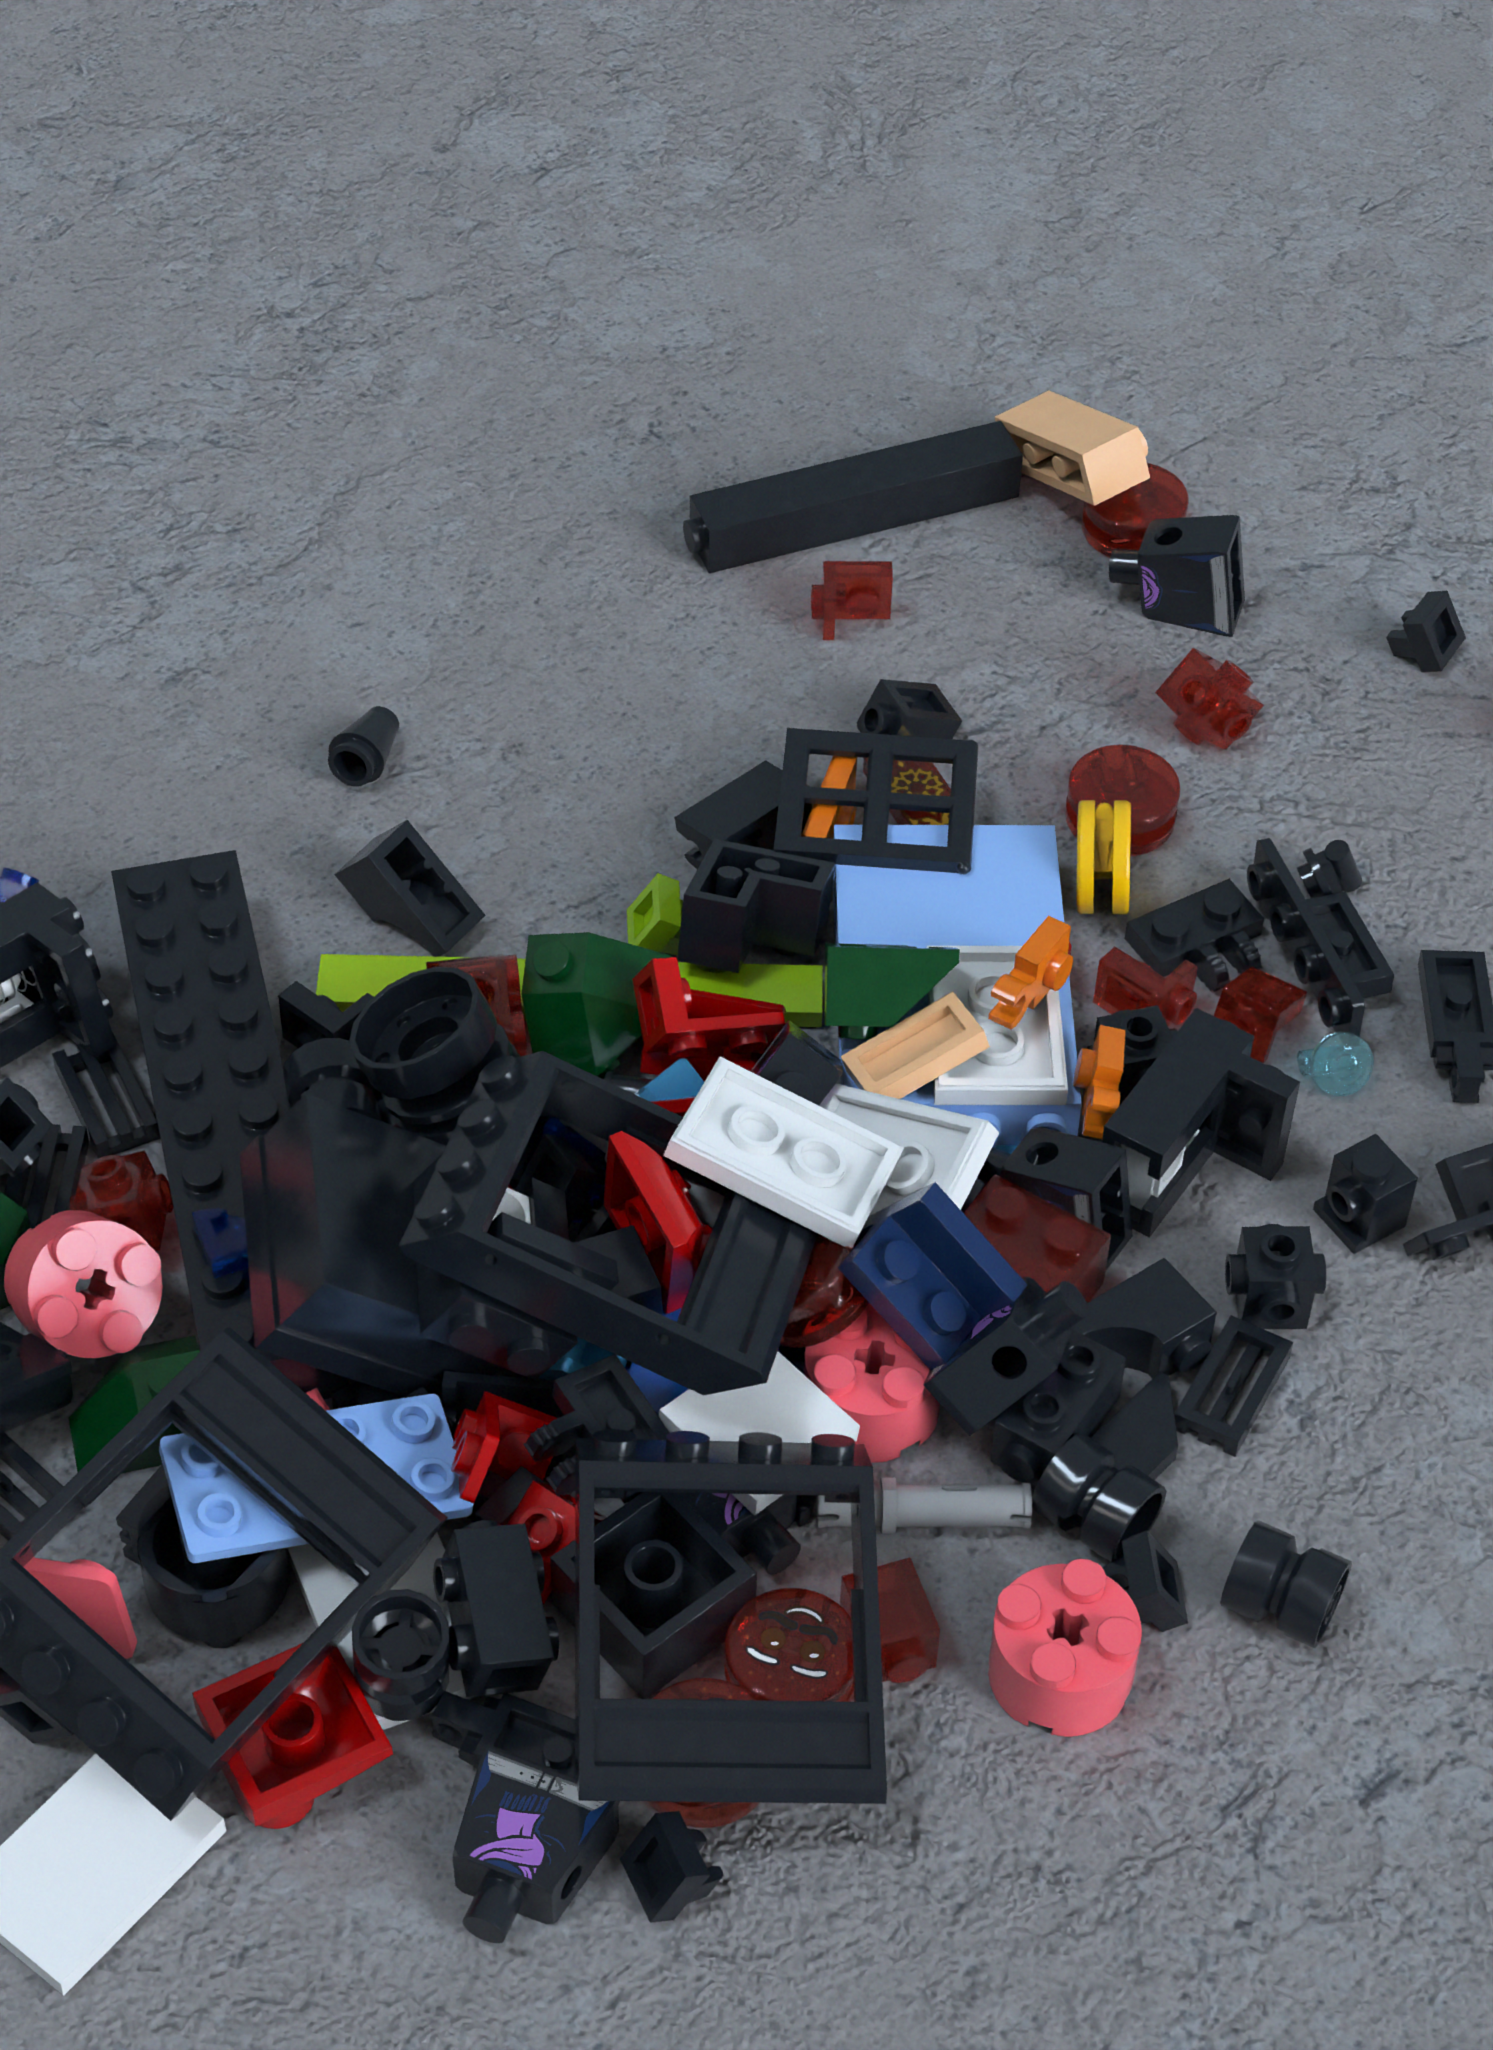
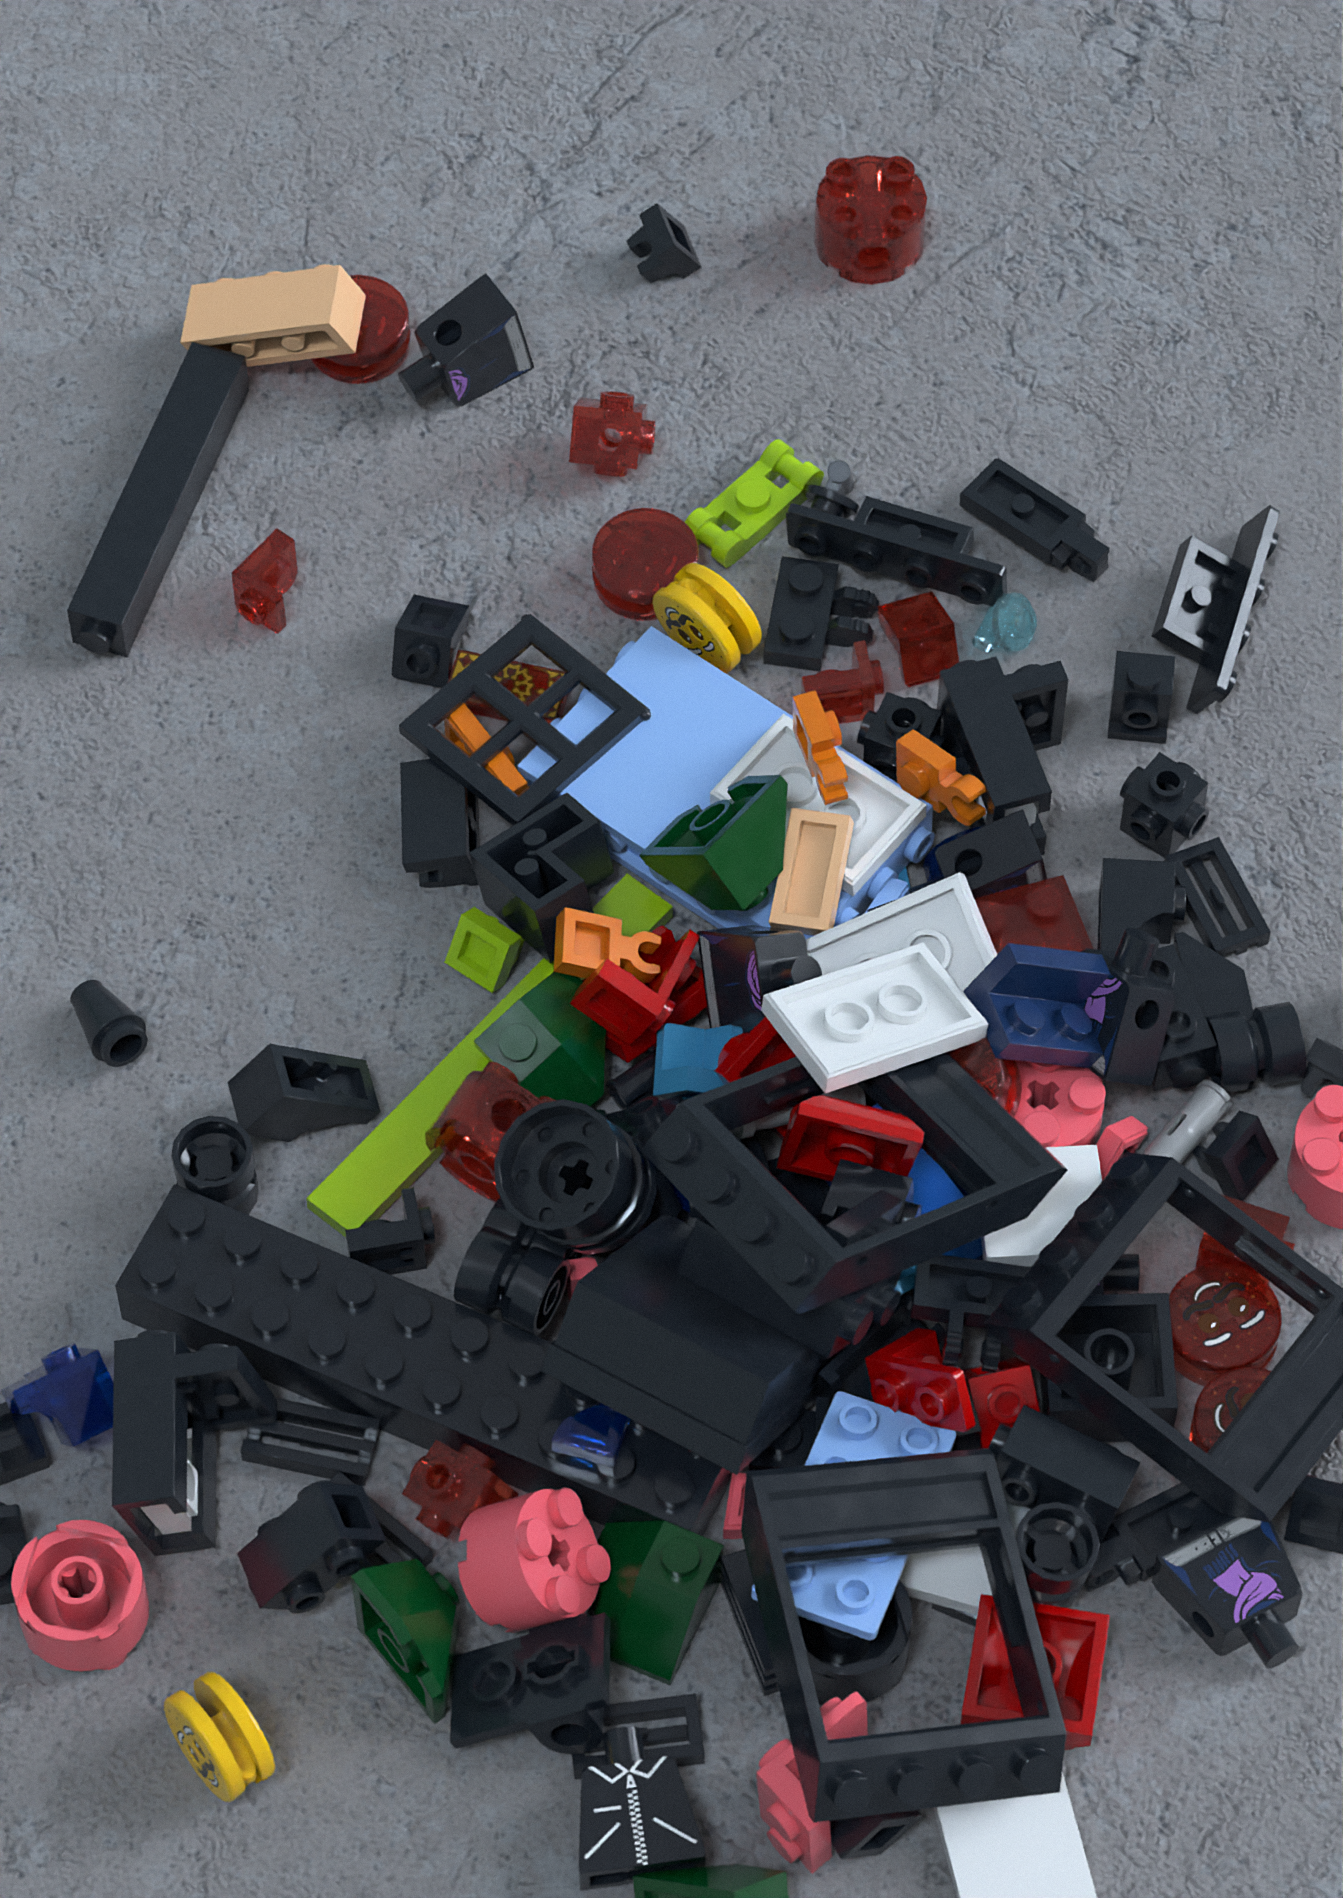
camera: 50 degrees left, 10 degrees up
(284, 878) = (217, 1162): none -> black wheel
(707, 963) = (588, 939): none -> orange plate
(904, 1458) = (1116, 1138): none -> coral tile
(979, 1559) = (1237, 1155): none -> black tile
(1247, 824) = (753, 504): none -> lime plate

